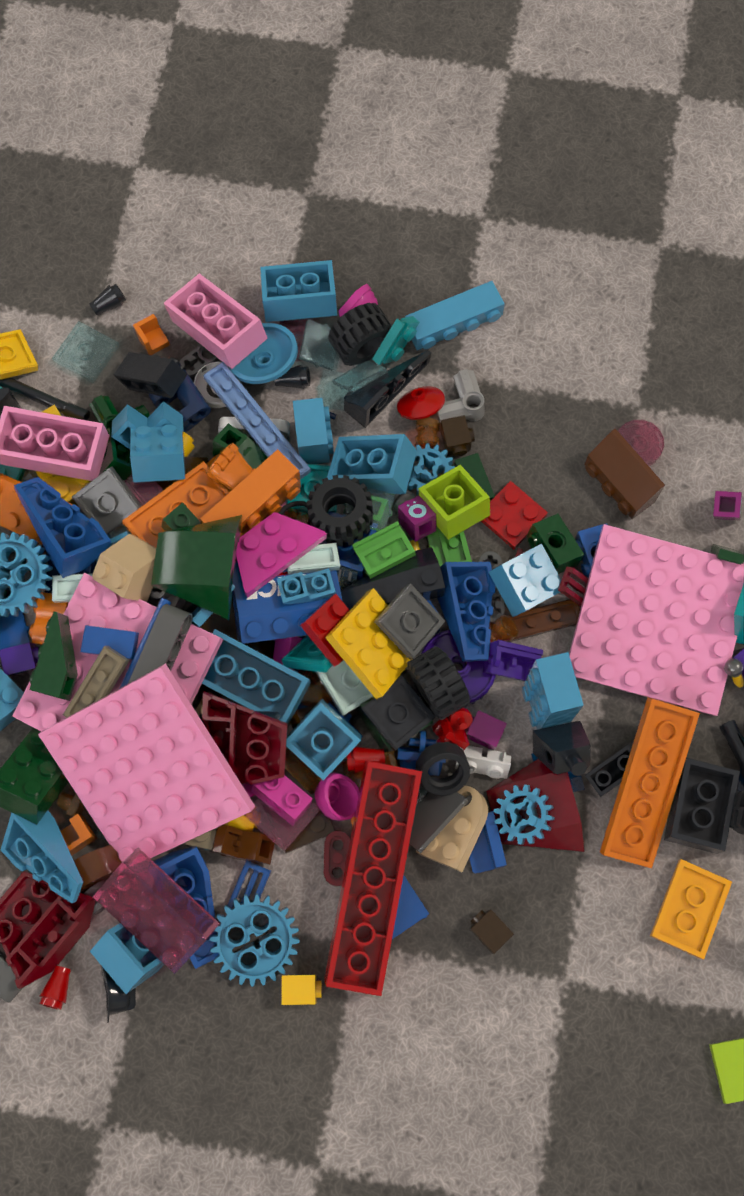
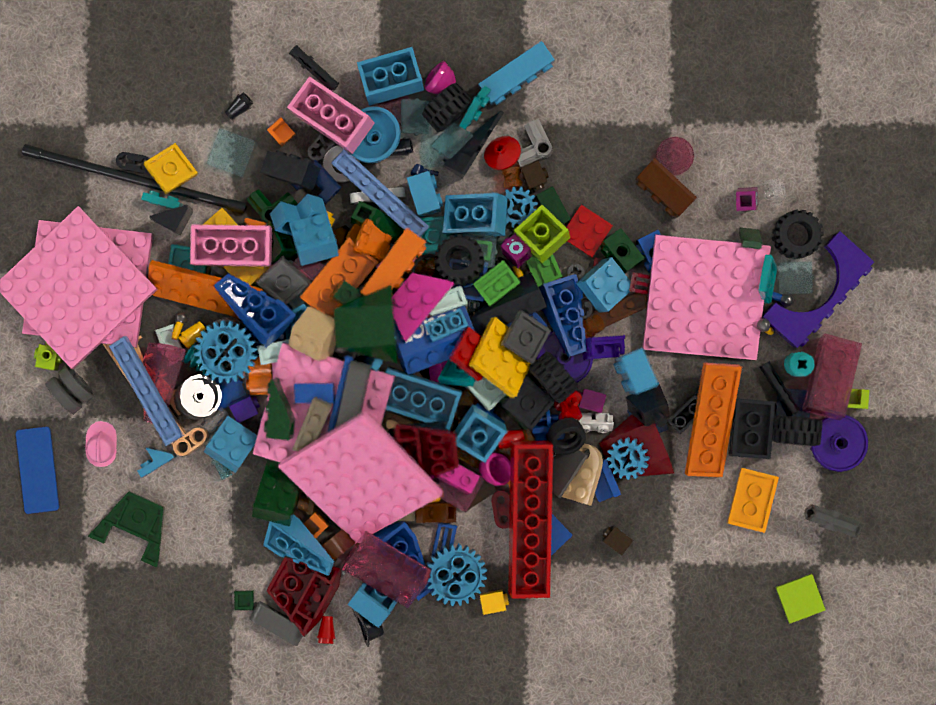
camera: 15 degrees left, 15 degrees up
(203, 266) = (317, 71): none -> black pin

